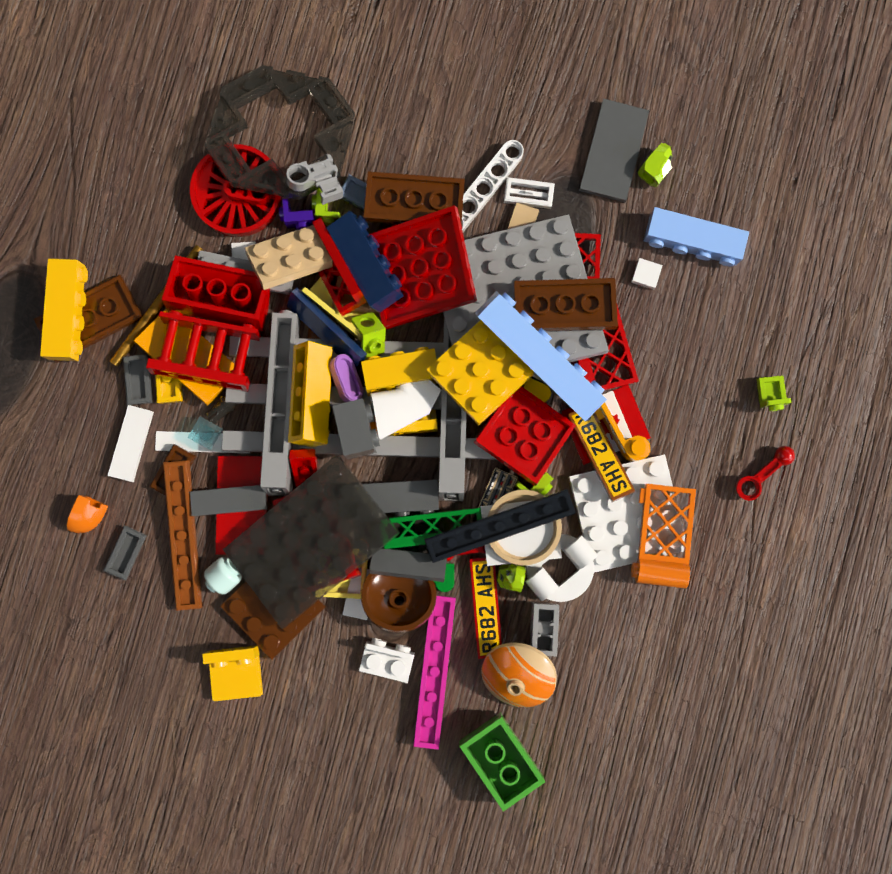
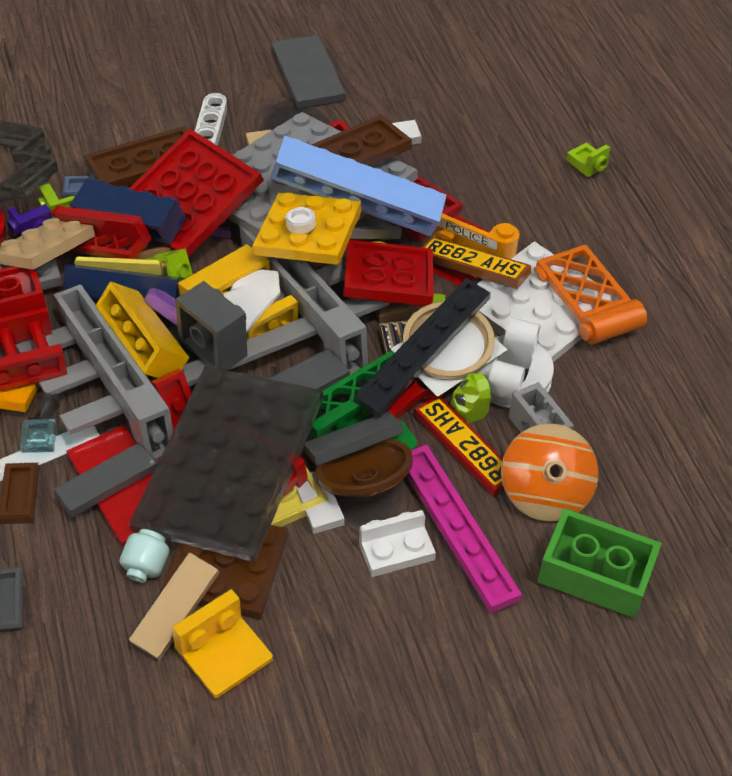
camera: 35 degrees left, 35 degrees down
(182, 535) = (70, 546): dark orange tile -> none
(220, 626) = (173, 605): none -> tan tile
(321, 174) = (25, 167): light grey piece -> none
(471, 372) = (300, 220): none -> white tile
(528, 193) = (252, 122): white tile -> none
(656, 165) = (353, 63): lime rock -> none
(696, 236) = (427, 90): light blue brick -> none
(783, 456) = (639, 196): red piece -> none

